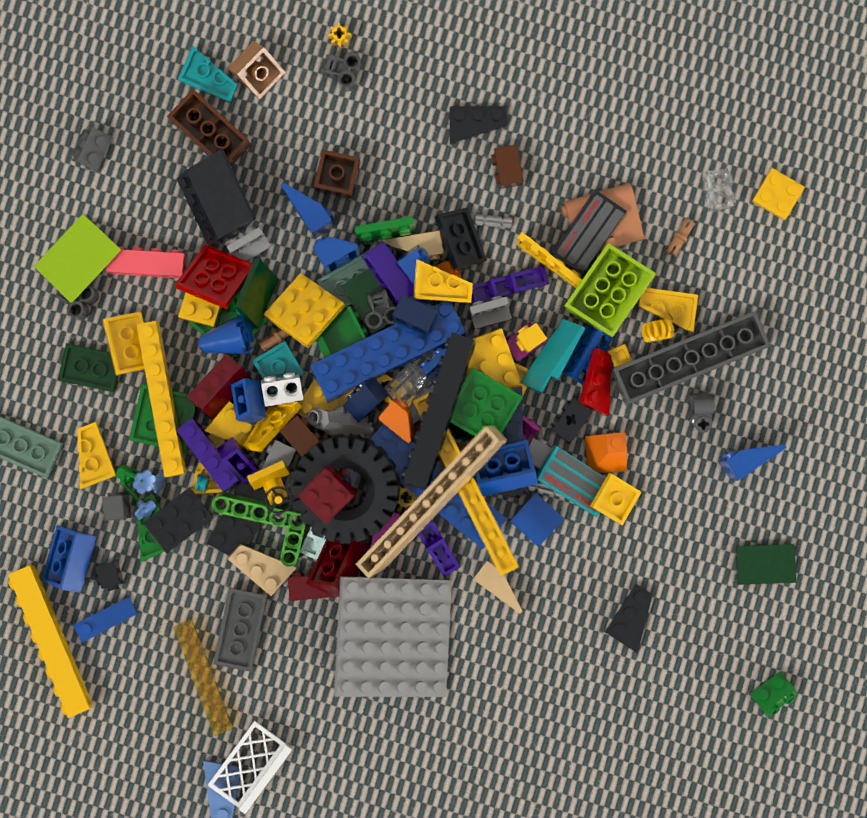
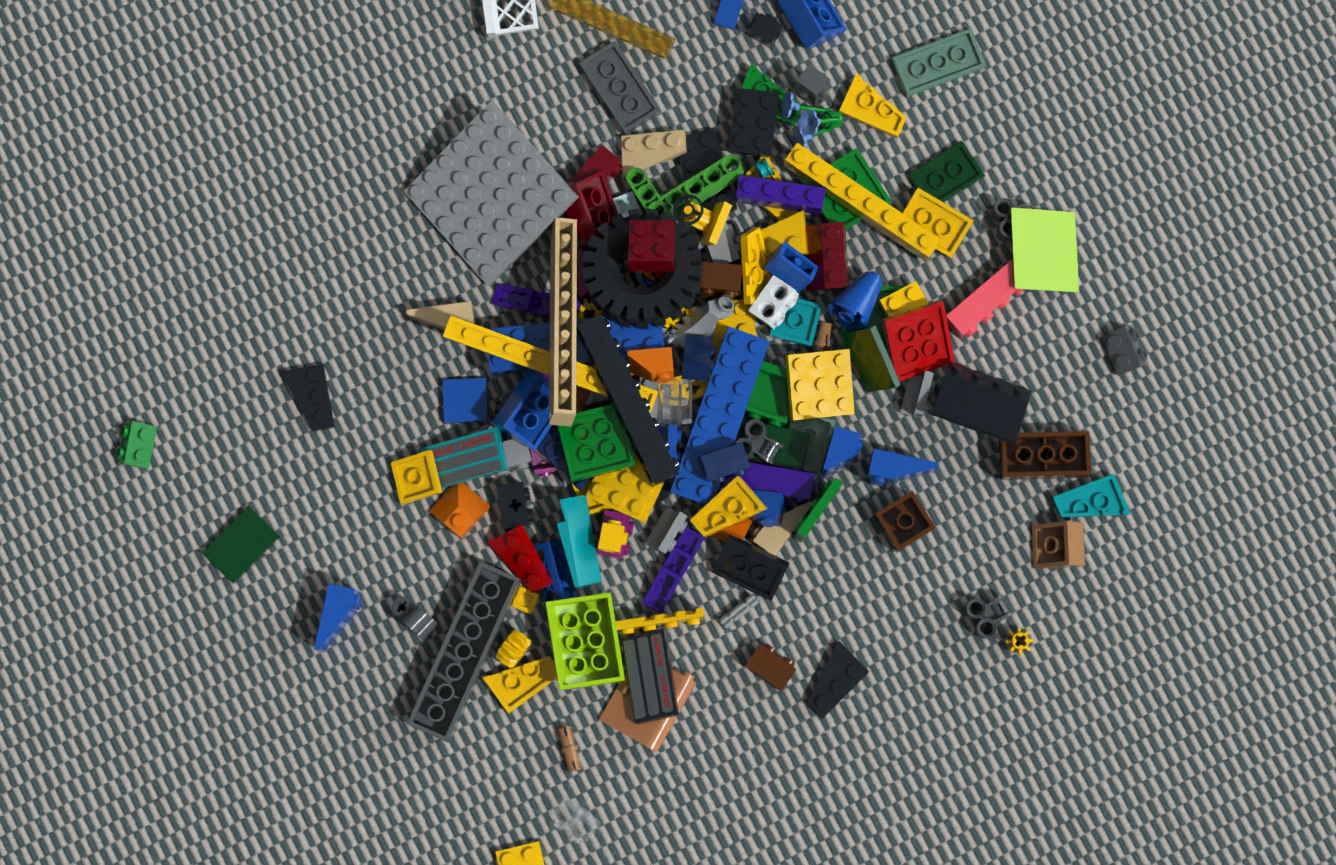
camera: 140 degrees right, 5 degrees down
(237, 459) = (753, 213): dark purple brick -> none

